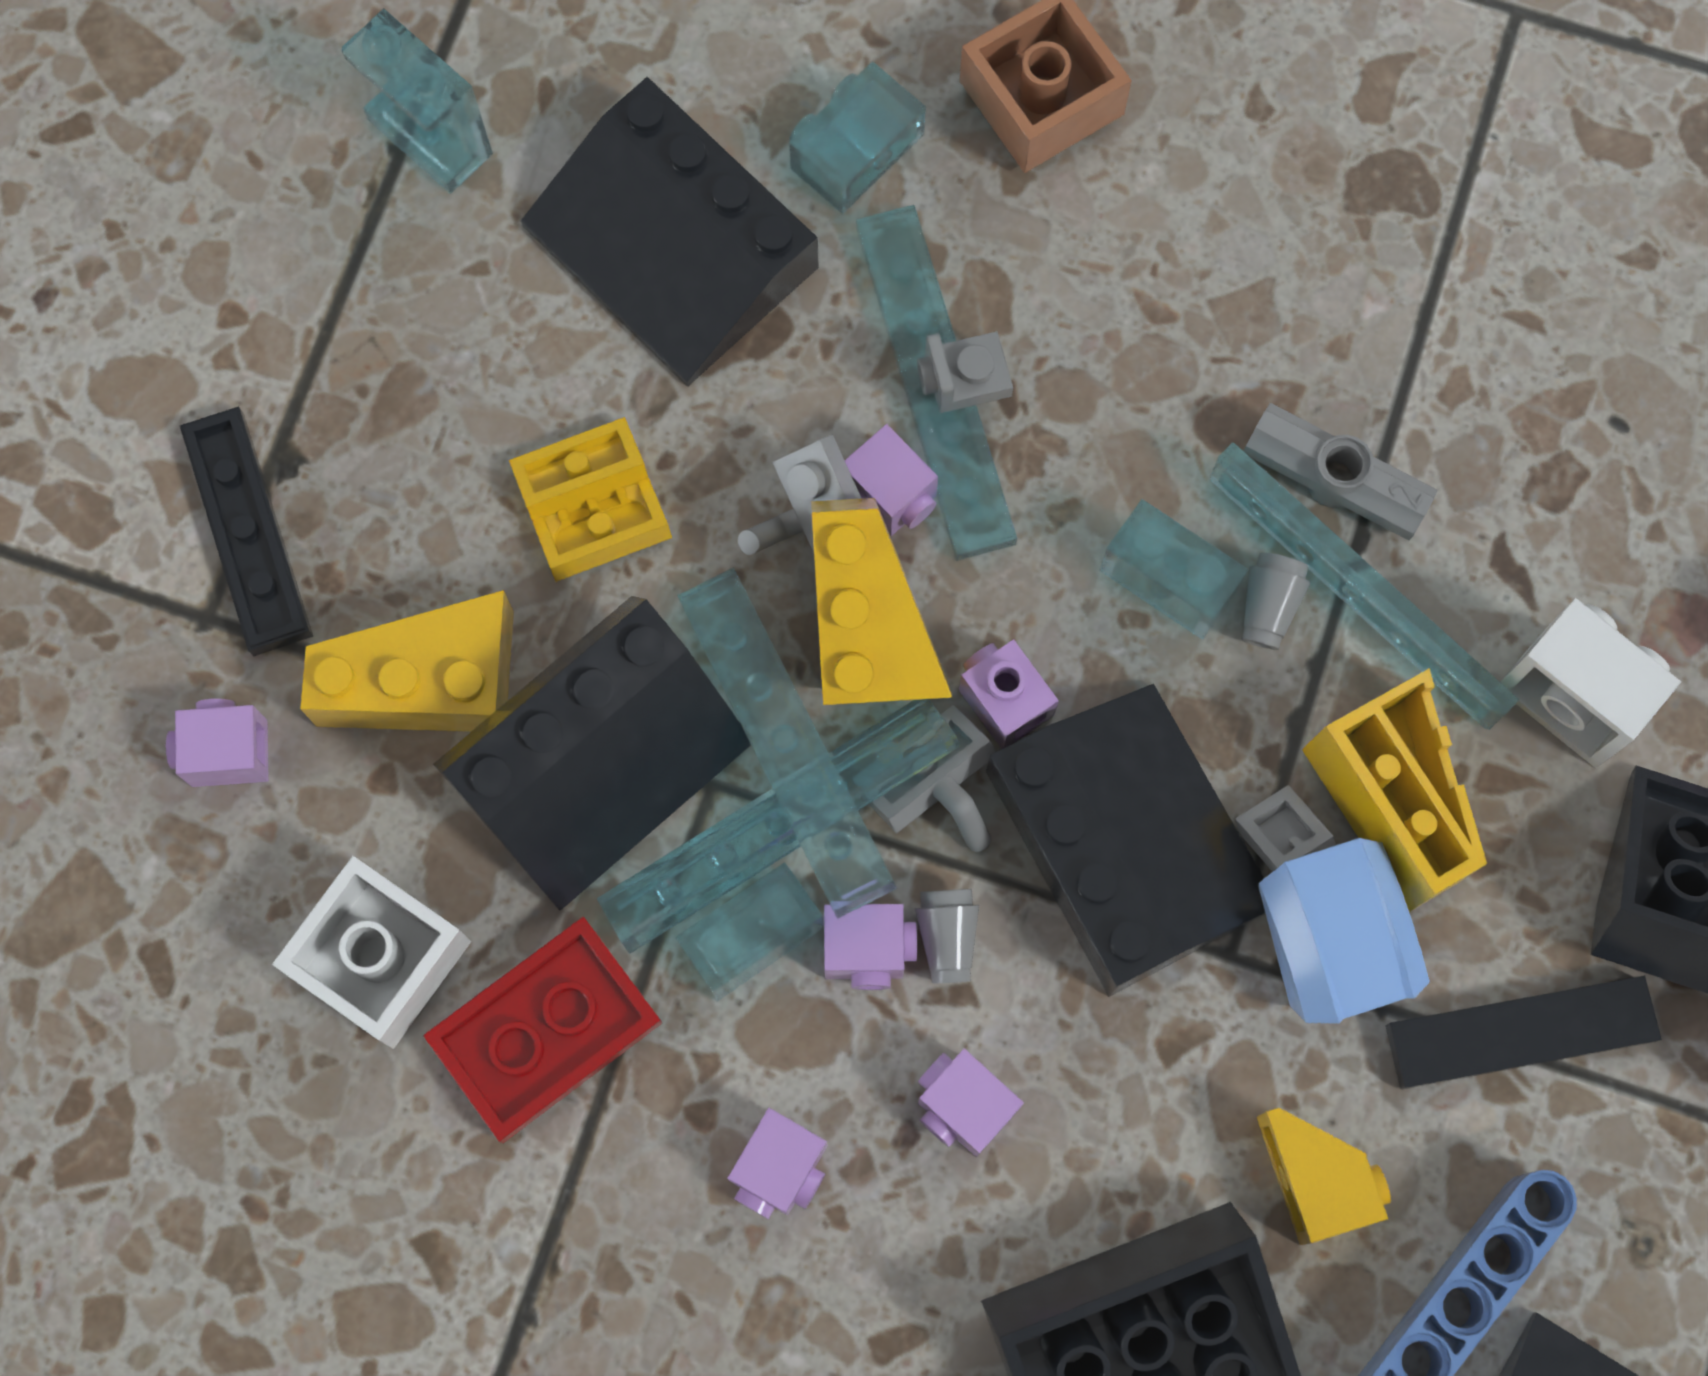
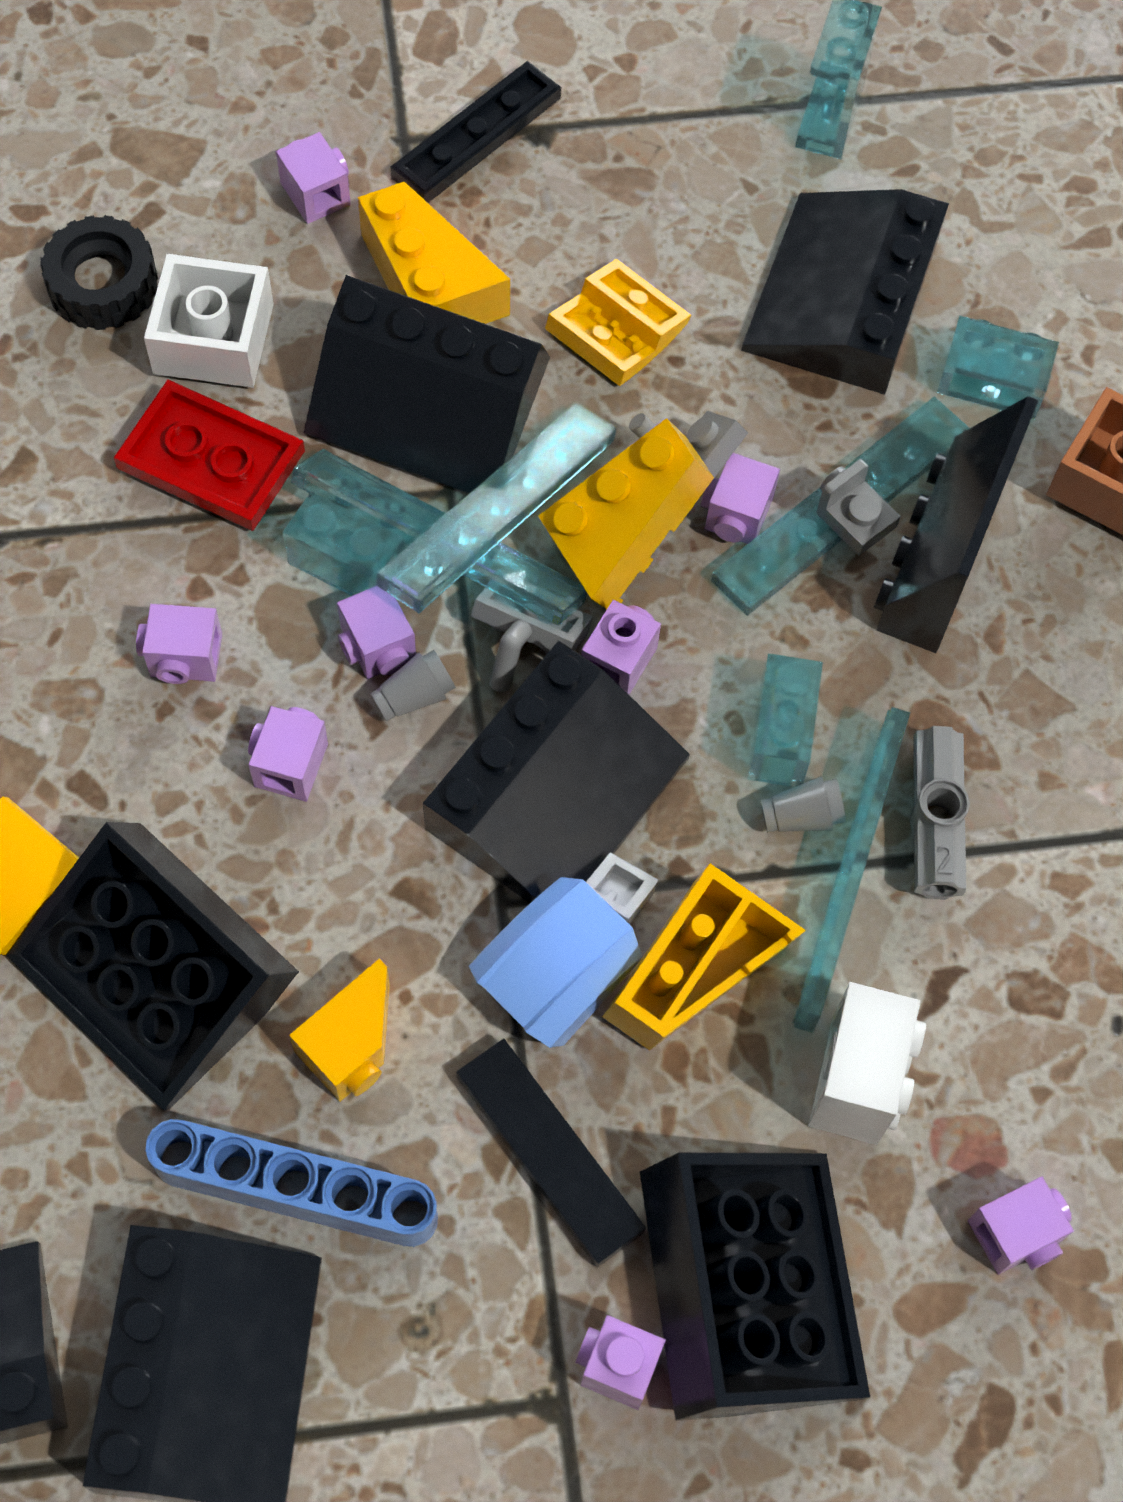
camera: 60 degrees right, 10 degrees down
(172, 1043) = (92, 239): none -> black tyre
(1049, 280) = (950, 528): none -> black slope

